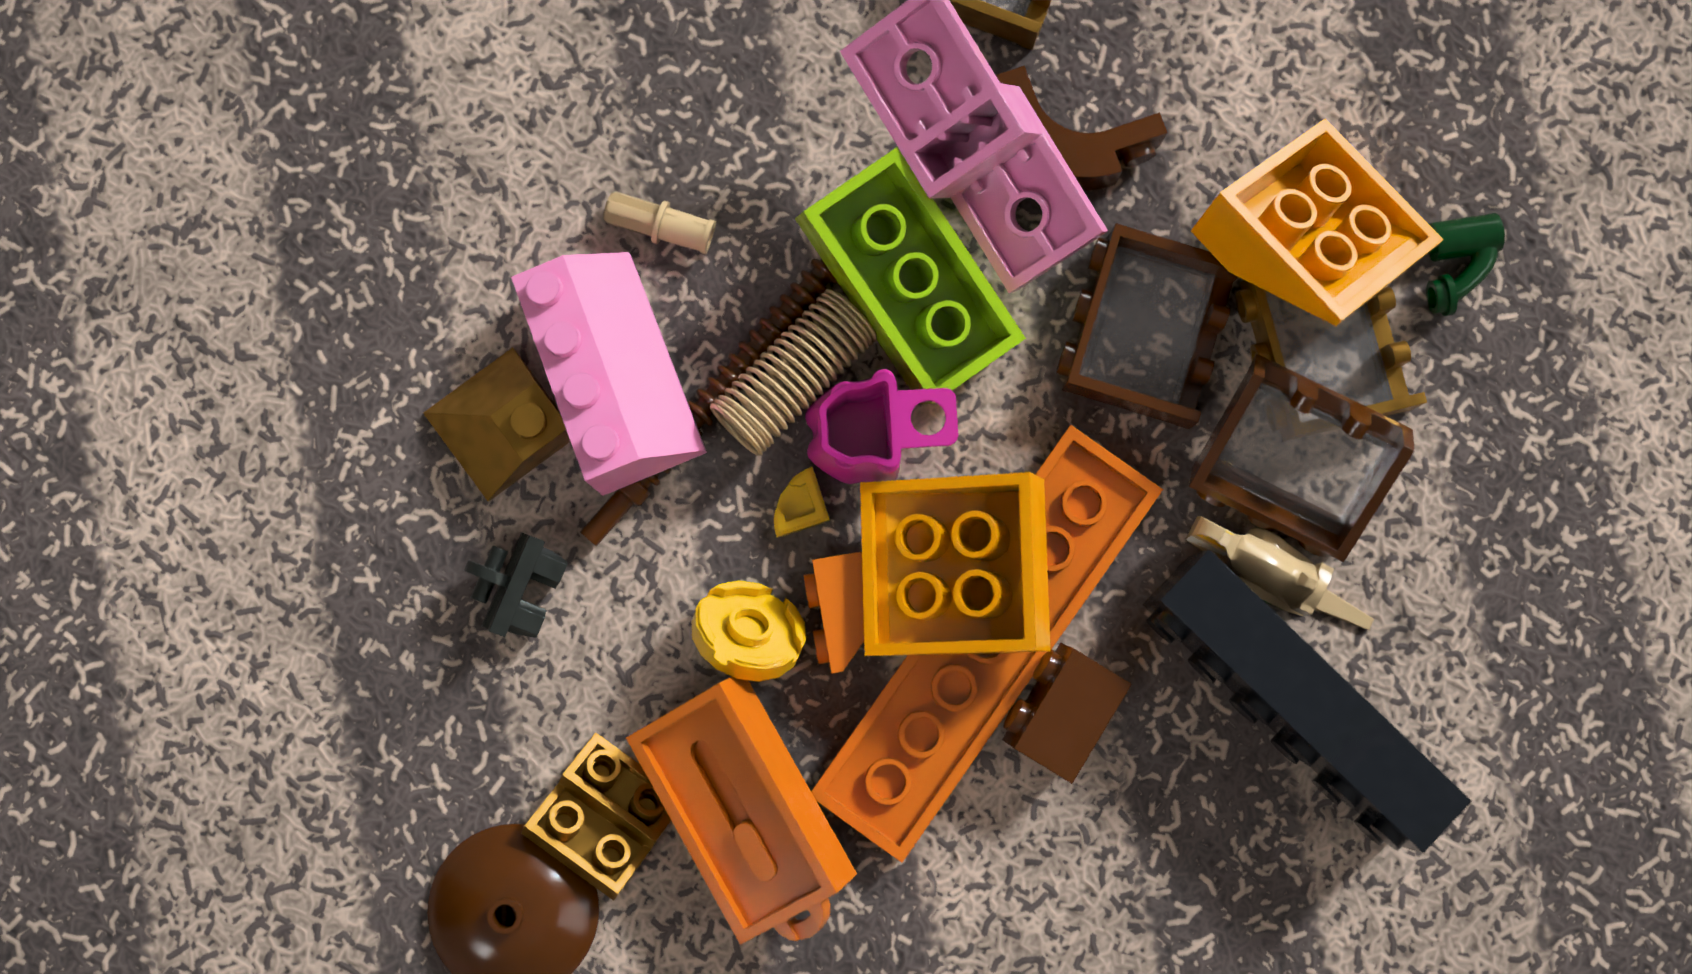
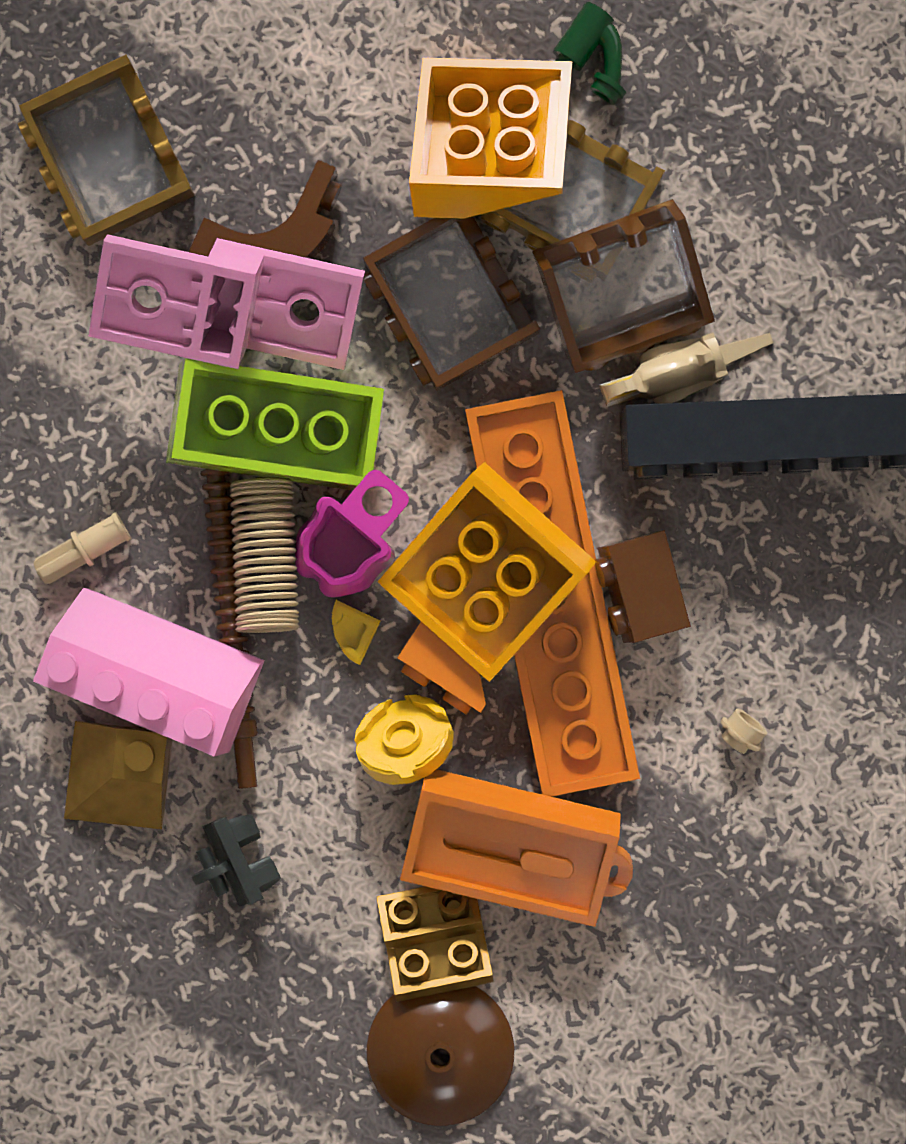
camera: 45 degrees left, 5 degrees up
(1023, 913) = (743, 731): none -> tan plate

